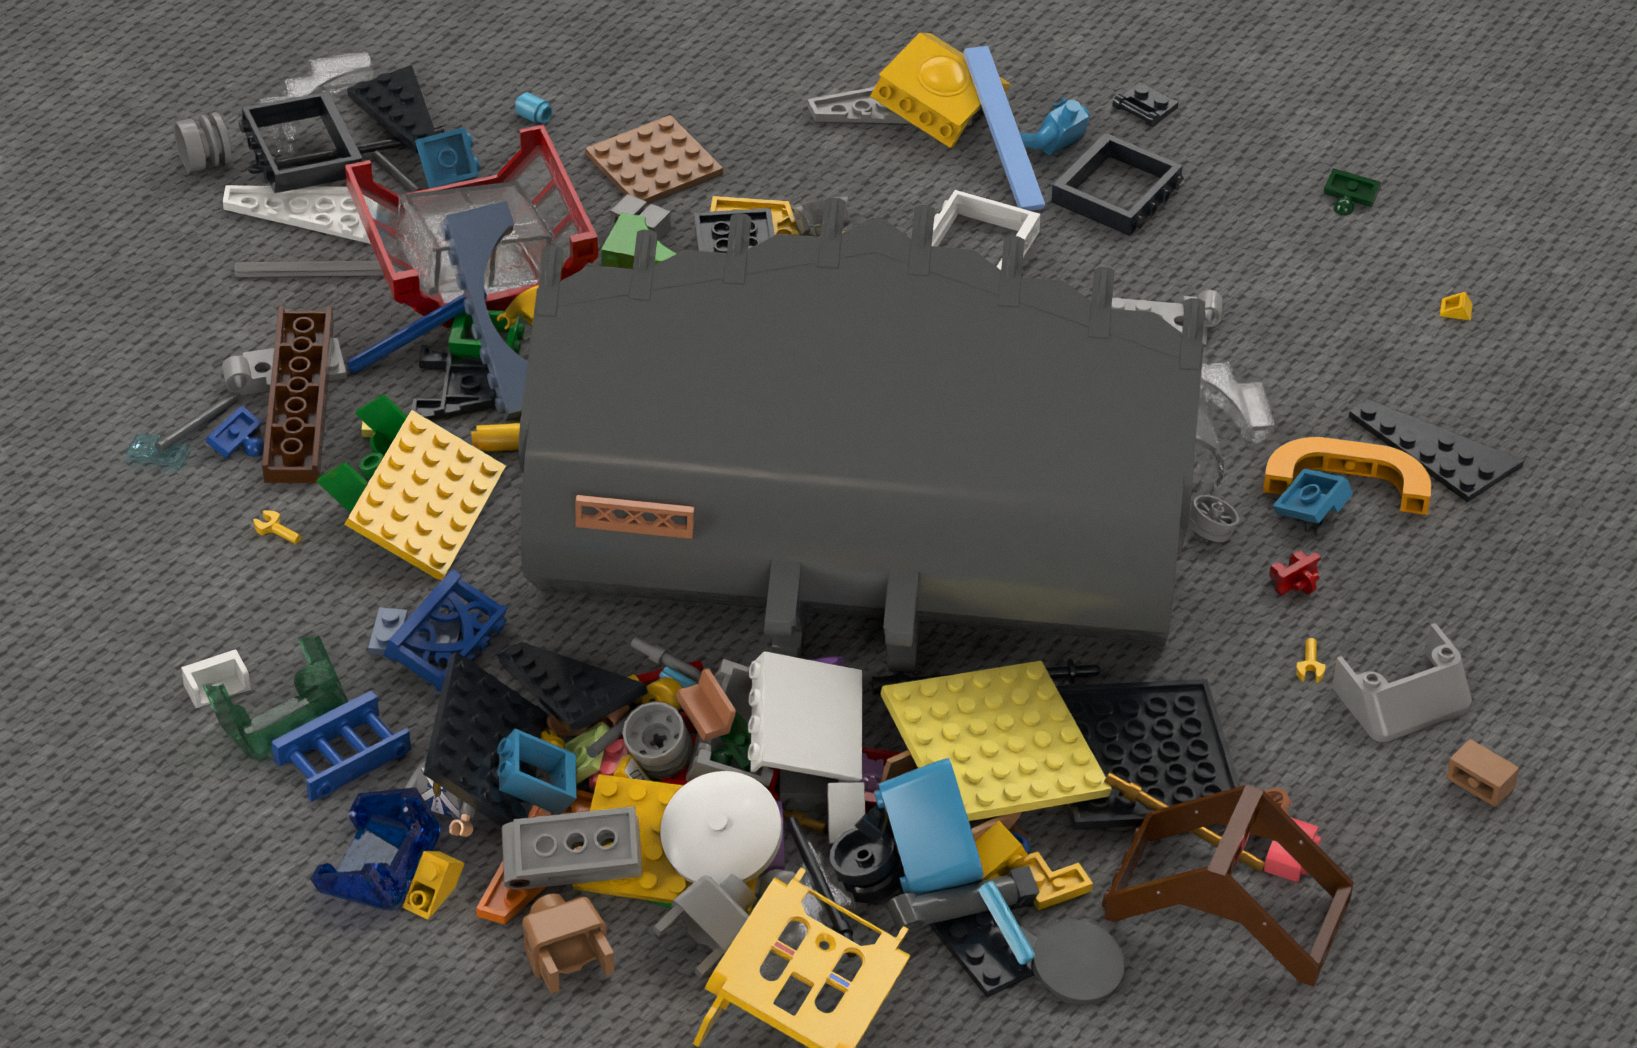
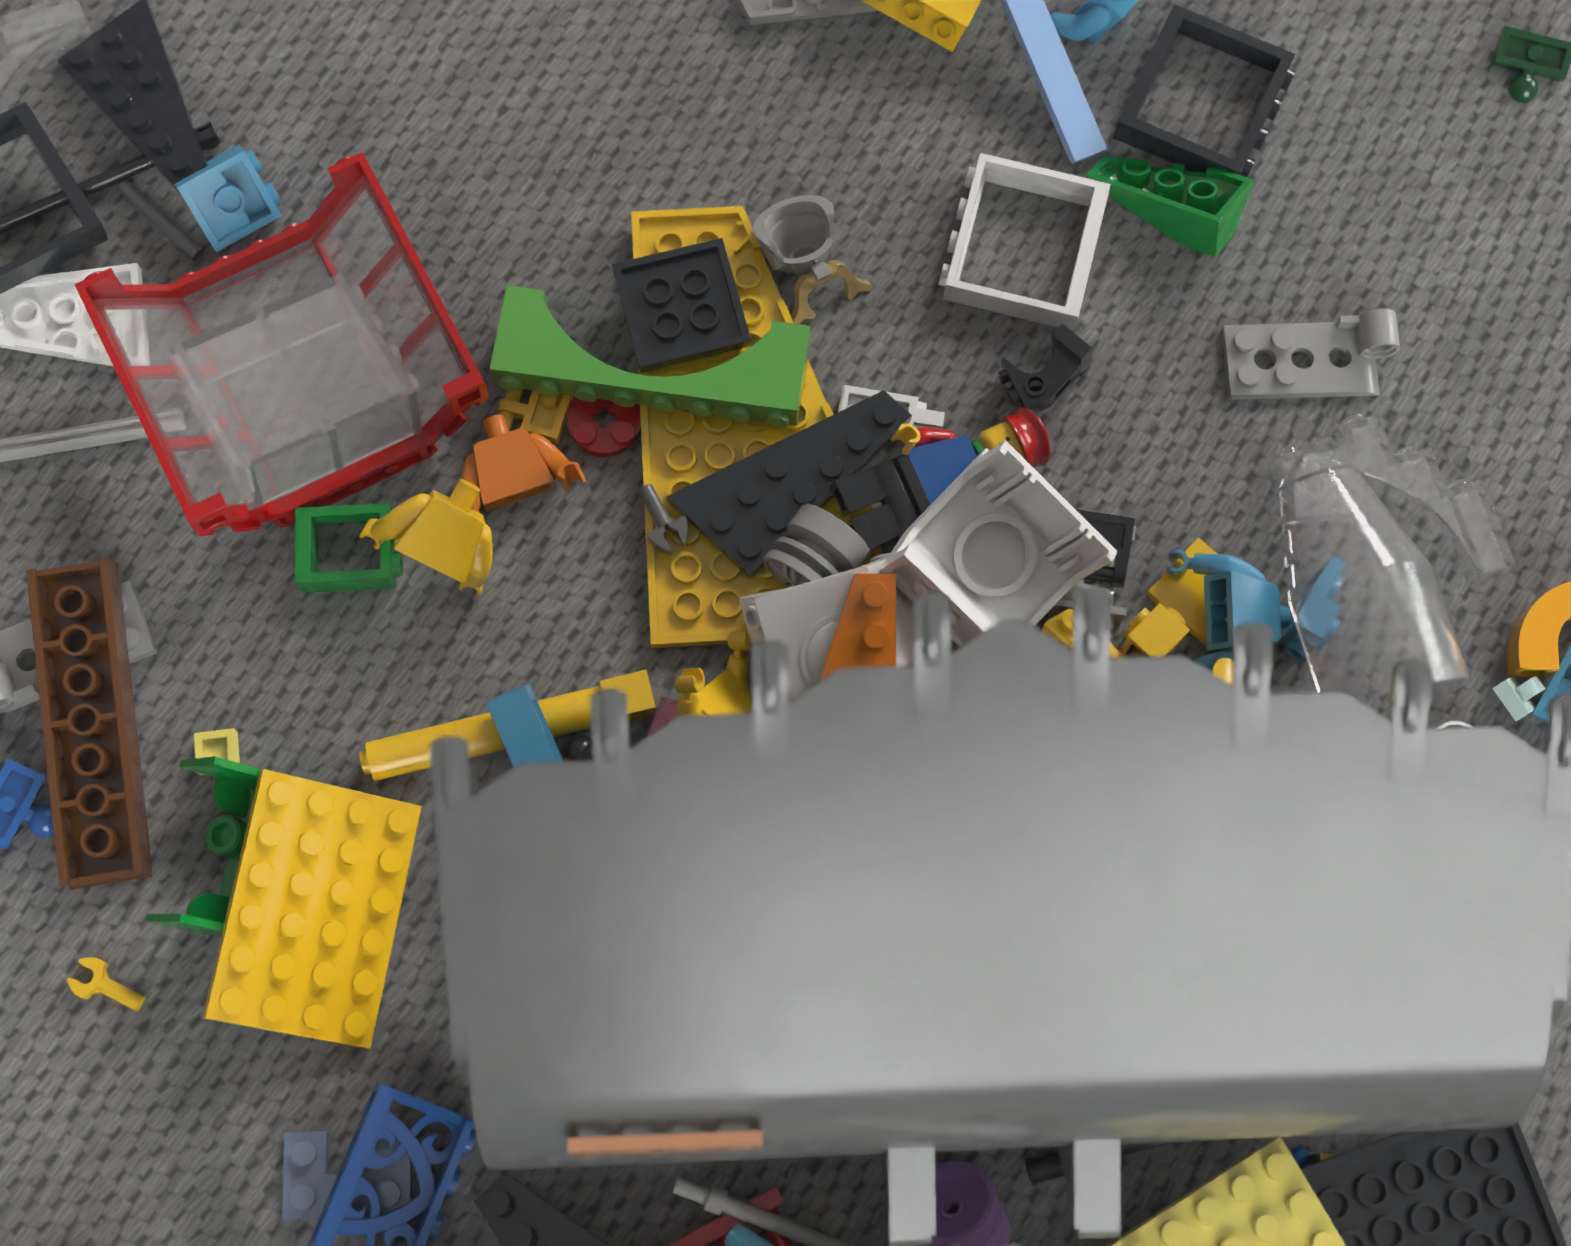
camera: 10 degrees left, 30 degrees up
(408, 334) = (244, 560): blue axle -> none
(464, 385) = (337, 648): black wing -> none
(472, 240) = (298, 451): sand blue arch -> none
(533, 108) = (338, 63): medium azure brick -> none
(654, 160) = (531, 141): medium nougat plate -> none
(656, 217) = (526, 265): light grey piece -> none
(1090, 236) = (1185, 205): none -> green wedge
(1265, 493) = (1517, 697): none -> light aqua tile

